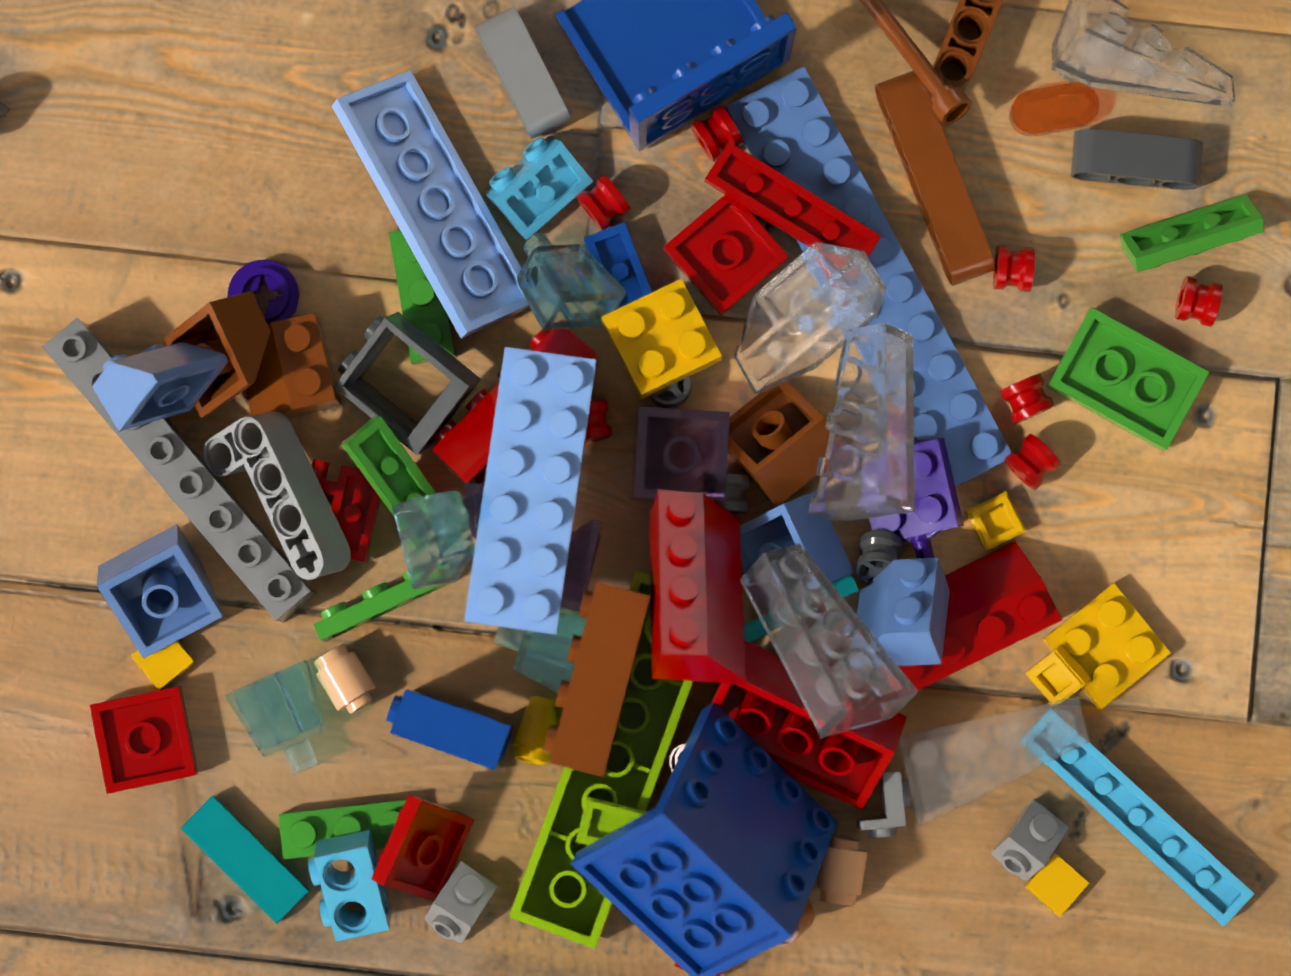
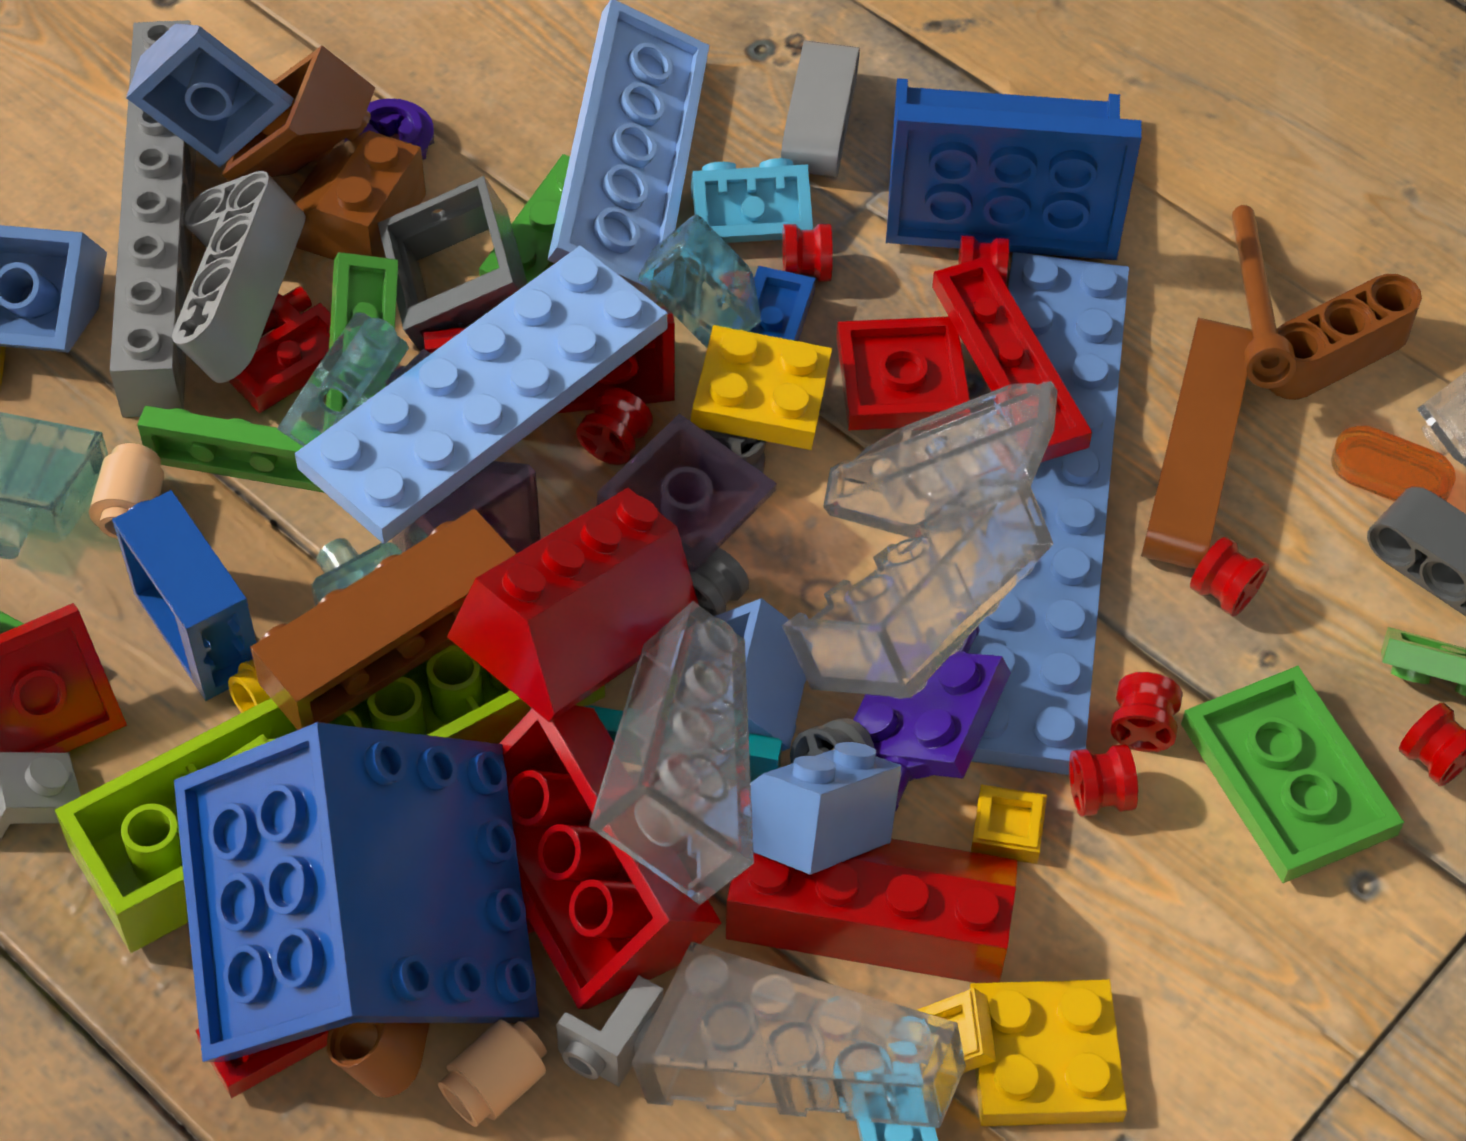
camera: 35 degrees right, 30 degrees down
(778, 441) = (802, 563): dark orange slope -> none

